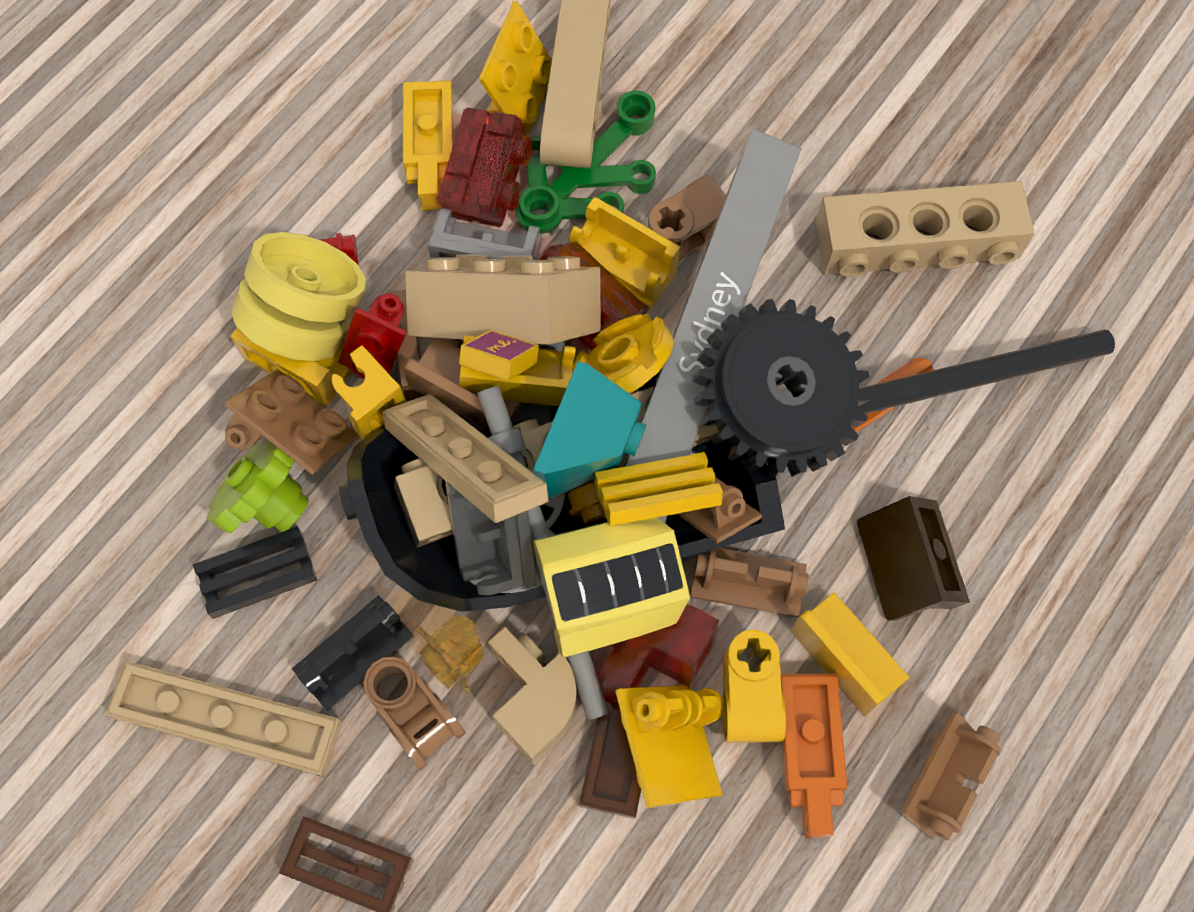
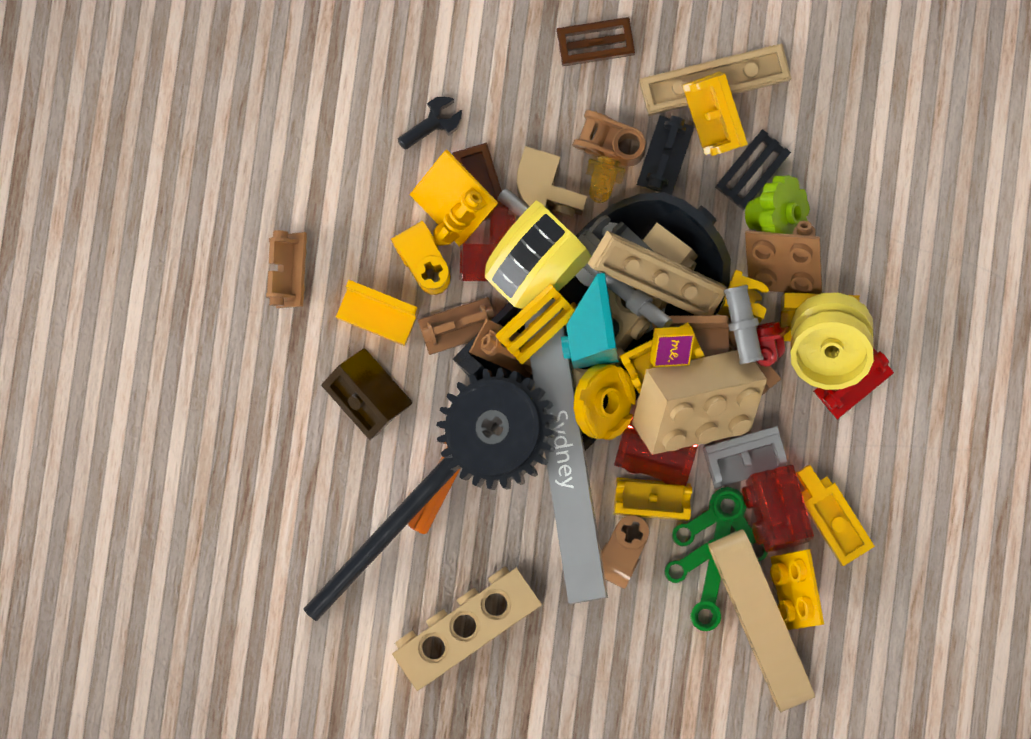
camera: 150 degrees right, 15 degrees up
(251, 663) = (714, 114): none -> yellow hinge
(390, 344) = (743, 324): none -> light grey pin
(641, 877) = (432, 123): none -> black bar
(814, 749) = (372, 246): orange hinge -> none

